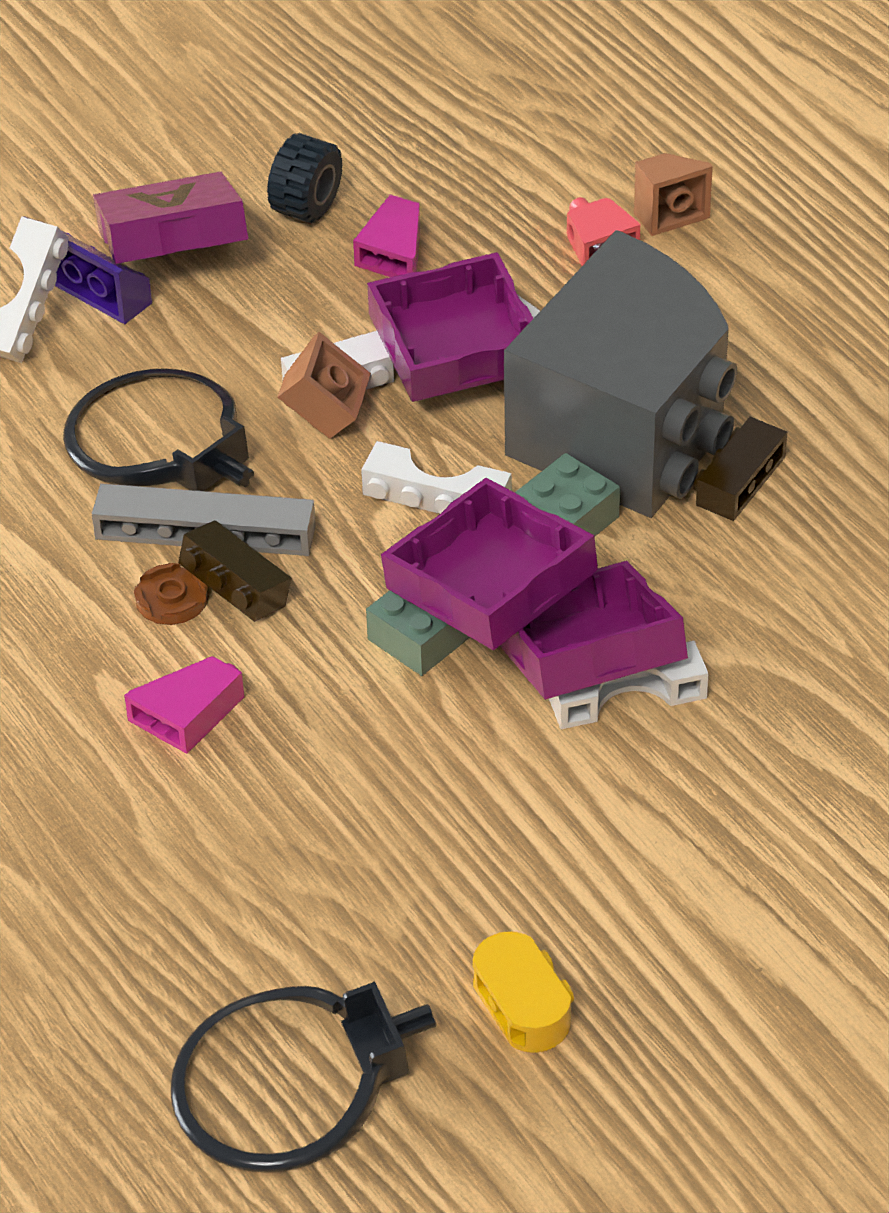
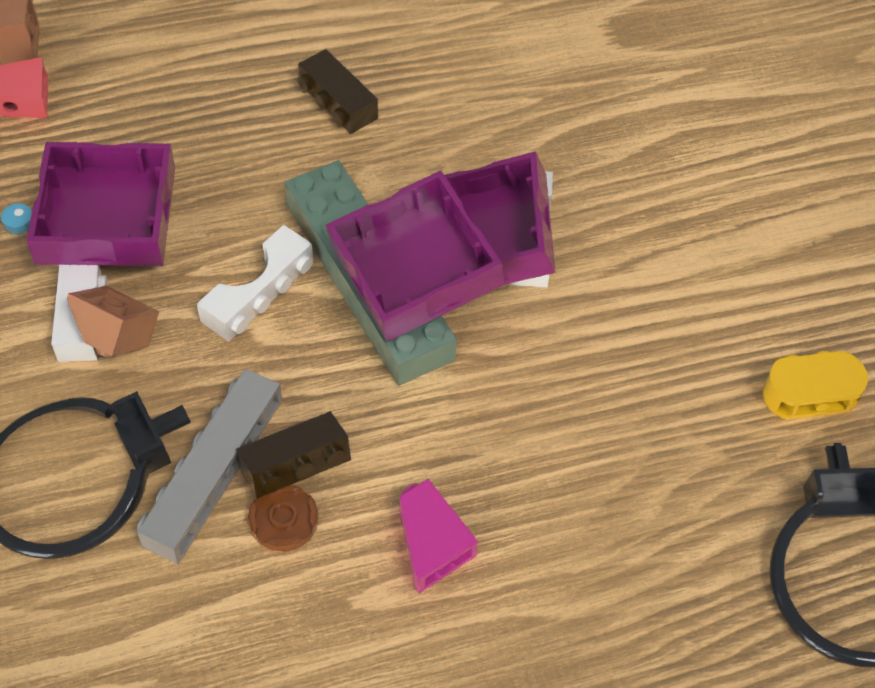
camera: 75 degrees left, 10 degrees up
(623, 375) = (238, 104): dark grey slope -> none

